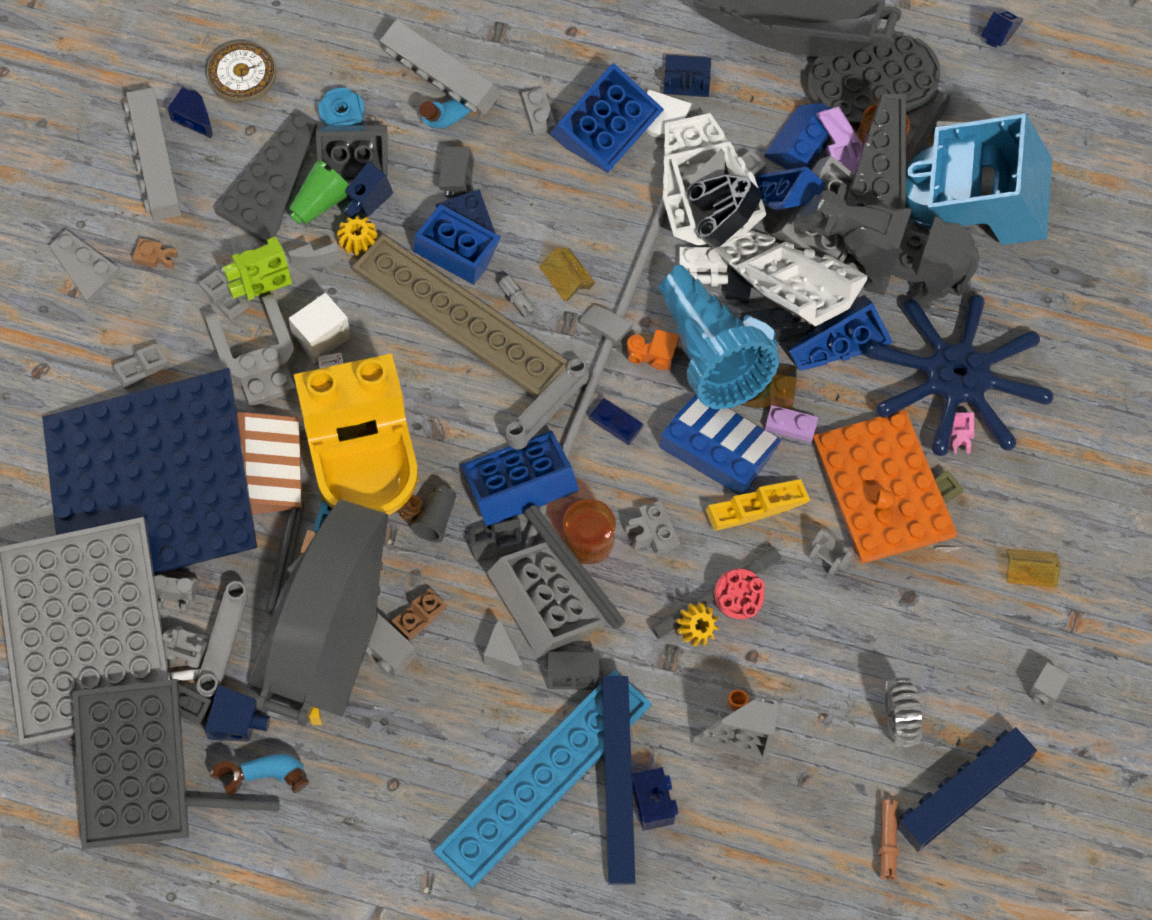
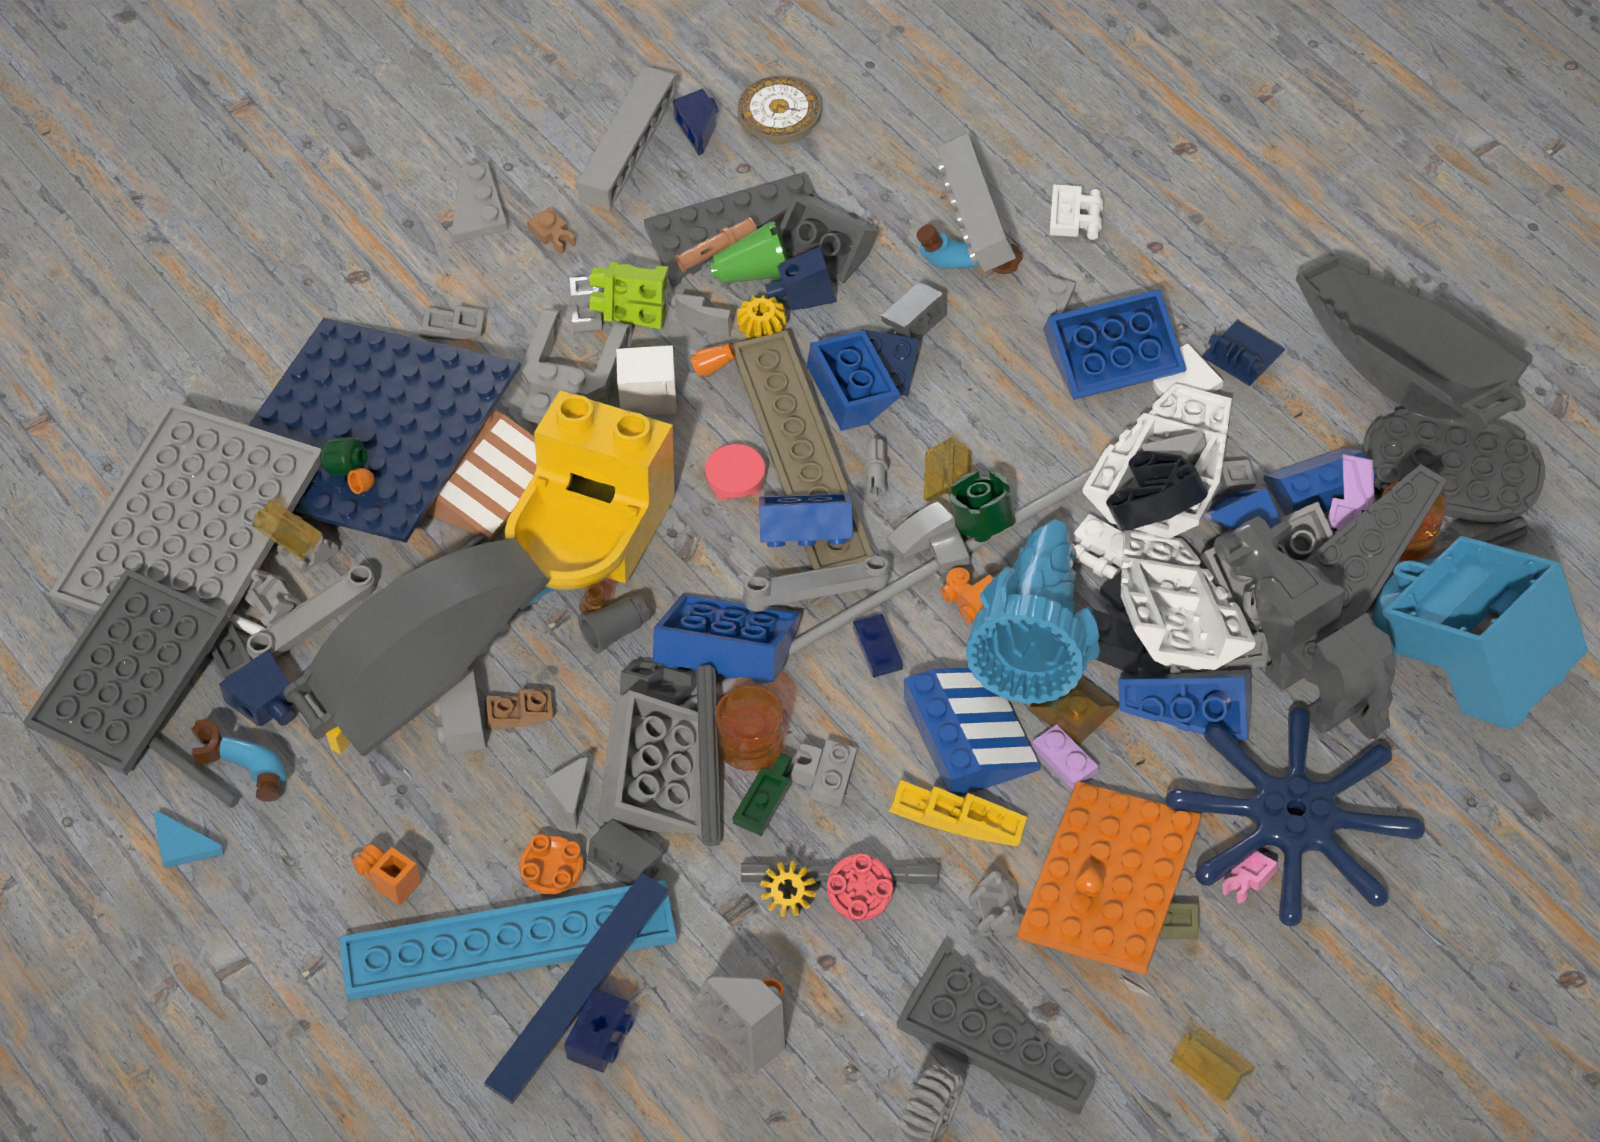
camera: 40 degrees right, 10 degrees down
(162, 513) = (342, 456): none -> dark green head
(166, 590) = (286, 529): none -> clear yellow panel
(186, 523) = (360, 480): none -> orange hinge
(266, 859) = (182, 844): none -> dark azure tile
(288, 191) = (714, 244): none -> nougat pin
(341, 97) = (853, 181): dark azure plate -> none
(348, 284) = (712, 359): none -> orange cone
(427, 356) = (735, 471): none -> coral tile
(435, 786) = (391, 873): none -> orange brick
(497, 38) = (1066, 211): none -> white plate
(508, 362) = (805, 519): none -> blue slope
(529, 708) = (551, 864): none -> orange dish
(582, 323) = (915, 532): none -> light grey slope
(613, 283) = (982, 505): none -> dark green brick
(629, 572) = (764, 796): none -> dark green plate
(833, 250) = (1250, 612): none -> light grey pin
(881, 636) = (979, 1026): none -> dark grey wing

